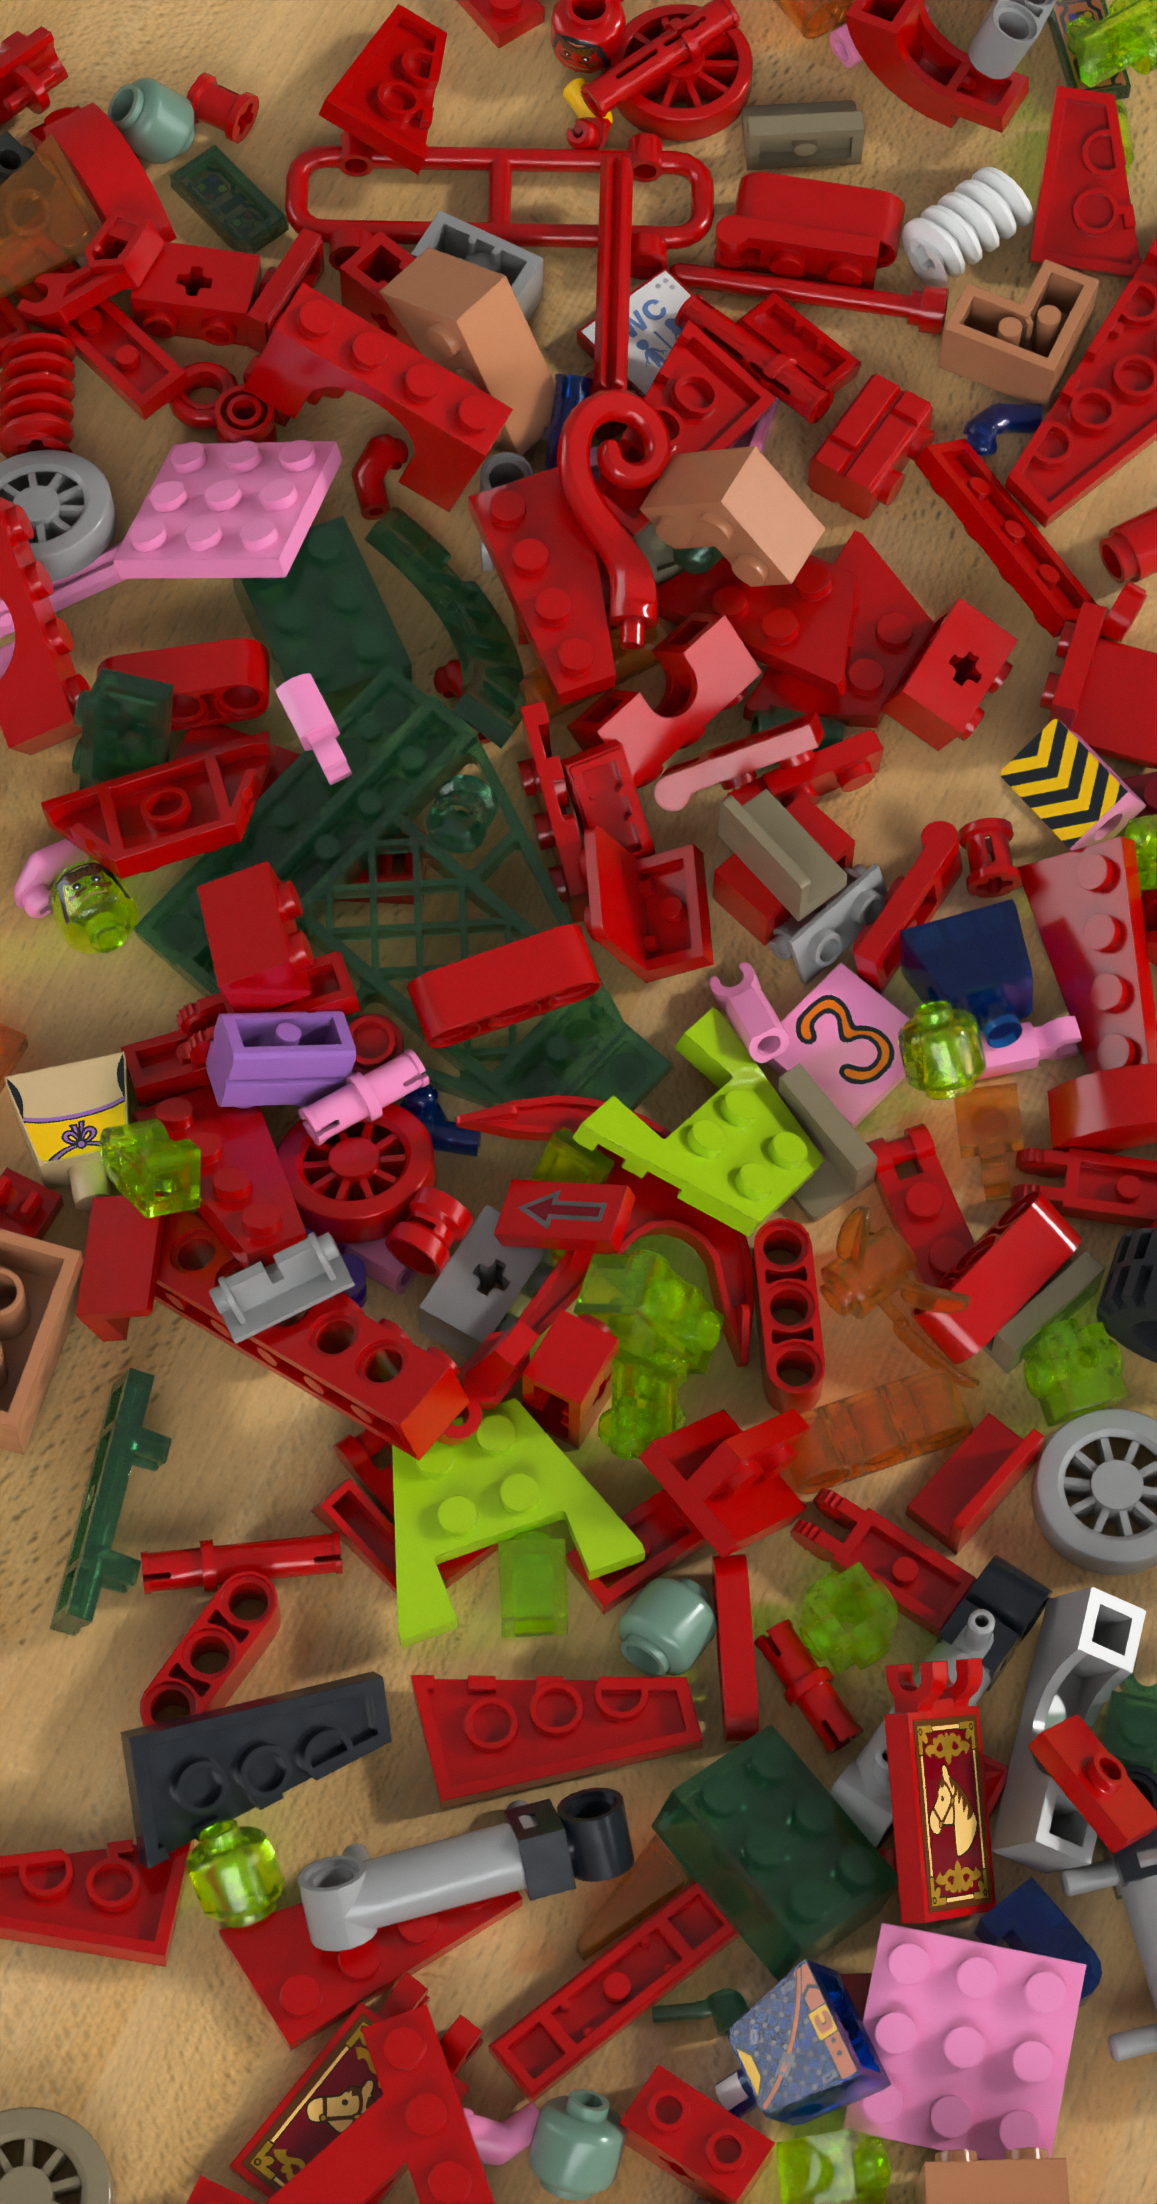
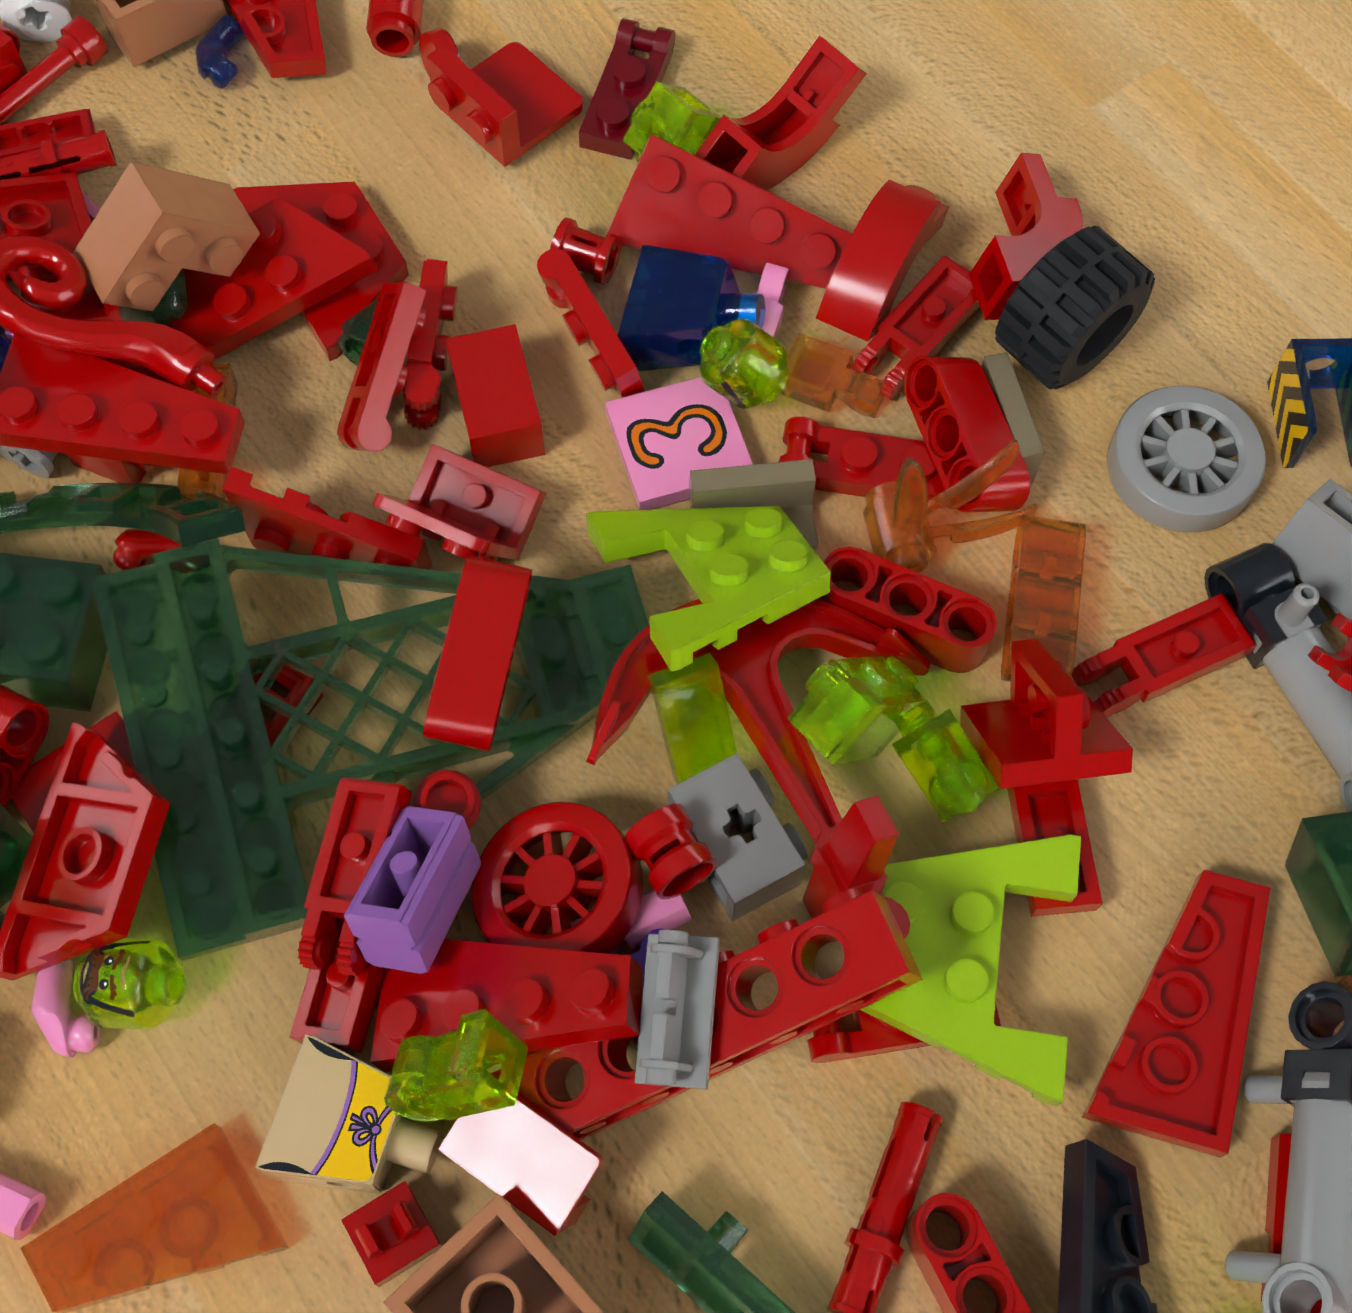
camera: 60 degrees left, 0 degrees up
(255, 939) = (287, 840): red brick -> none
(314, 725) = (105, 672): bright pink bar -> none
(361, 1528) = (908, 1077): red piece -> none
(364, 1096) = (497, 837): bright pink pin -> none
(444, 1133) = (570, 786): clear blue arm -> none
(462, 830) = (289, 613): clear green wheel -> none
(533, 1585) = (1050, 954): clear neon green brick -> none
(564, 1215) = (734, 723): red tile -> none
(570, 1376) = (899, 786): red brick -> none
(607, 796) = (342, 481): red plate -> none
(667, 1627) = (1147, 860): sand green head -> none
(704, 675) = (296, 433): red arch -> none
(735, 1648) = (1194, 818): red beam -> none
(752, 1015) = (611, 489): bright pink bar -> none
(780, 853) = (494, 378): dark tan panel -> none
(808, 1686) = (1251, 776): red pin -> none
(824, 935) = (572, 407): light grey hinge -> none
(851, 1599) = (1217, 708): clear neon green brick -> none
(871, 447) = (166, 127): red brick -> none
(957, 645) = (410, 189): red brick -> none
(974, 1482) = (1132, 550): red panel -> none
(1004, 533) = (300, 96): red plate -> none
(1071, 787) = (574, 157): piece -> none
(1074, 1371) = (1081, 424): clear neon green brick -> none

